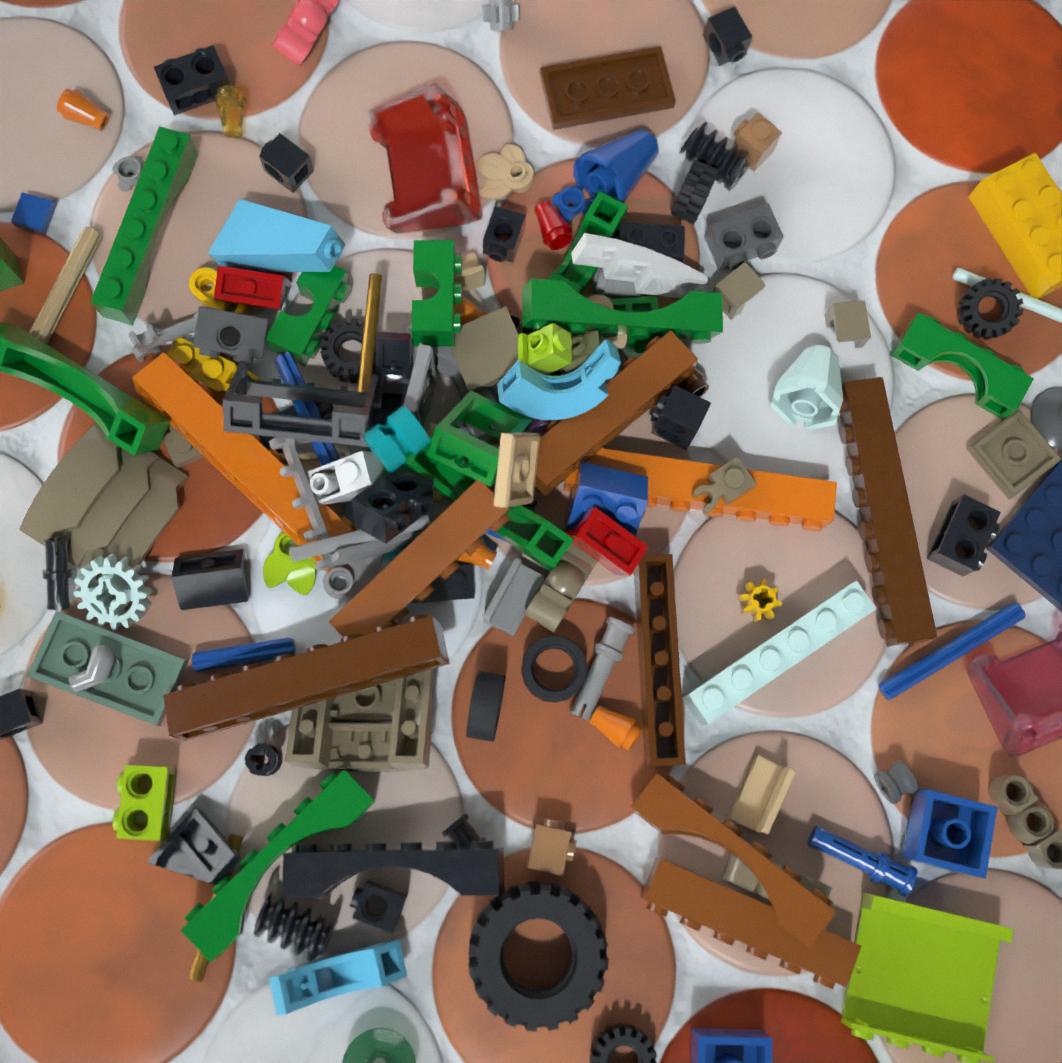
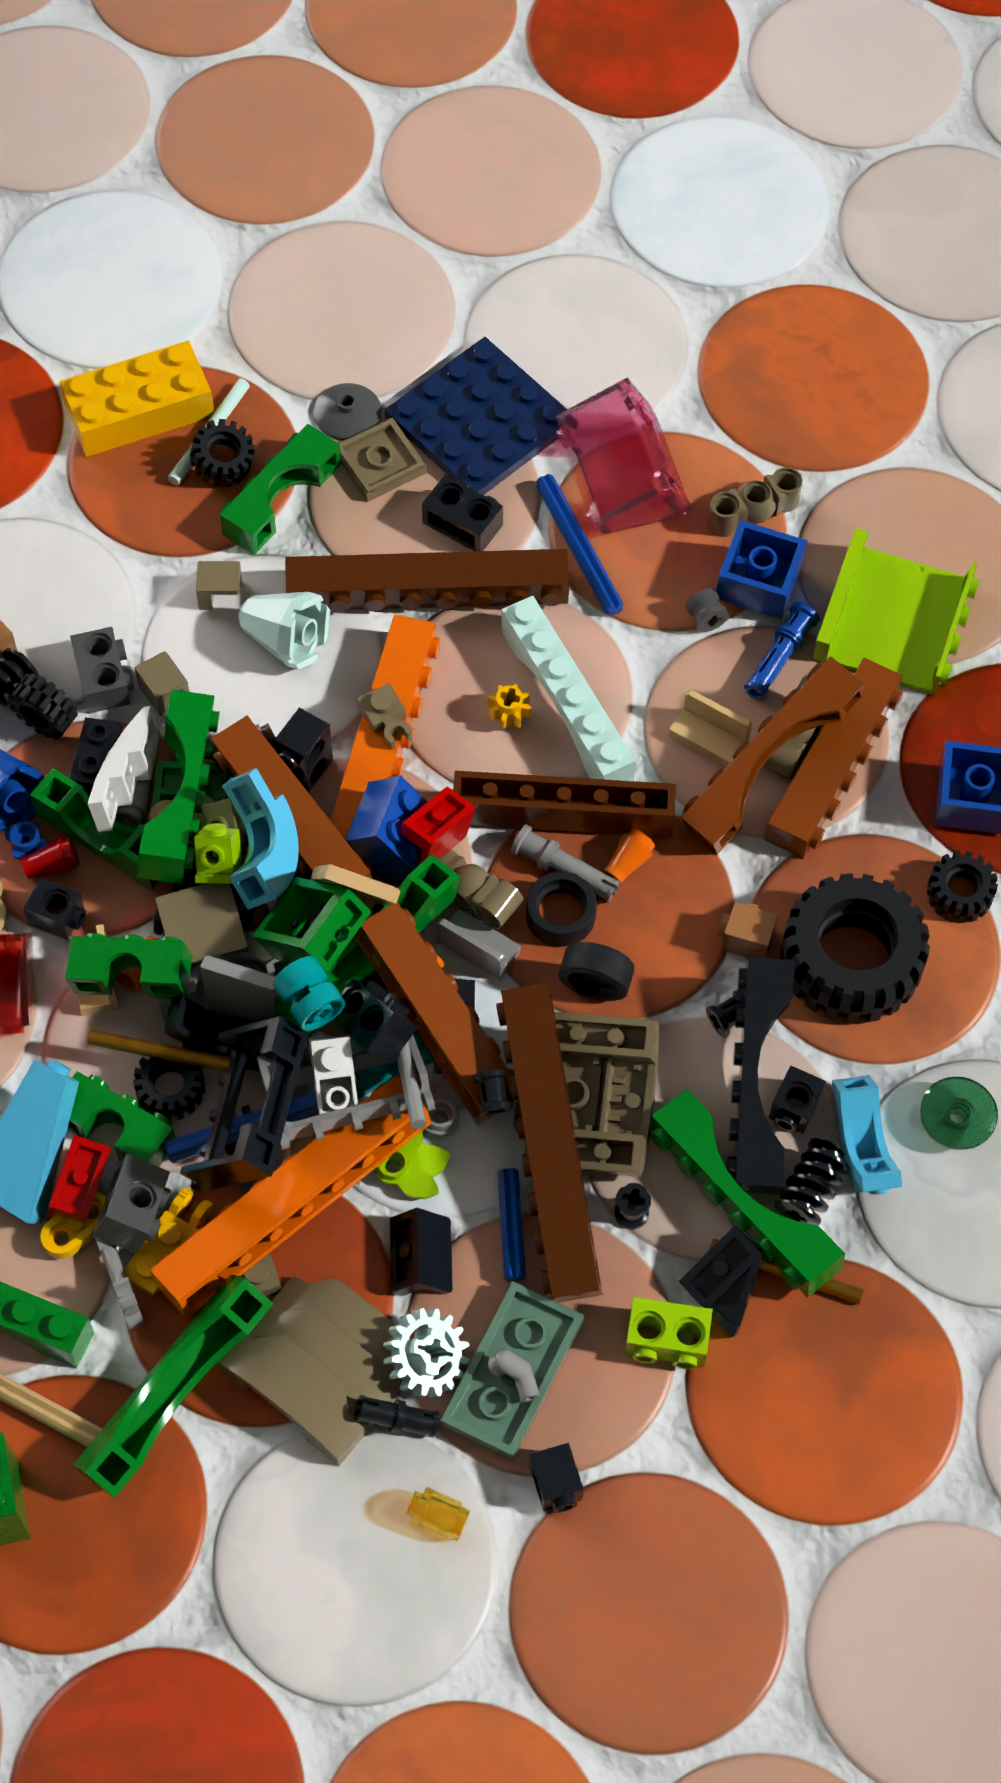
camera: 75 degrees left, 15 degrees down
(344, 621) = (492, 1092): none -> black bush

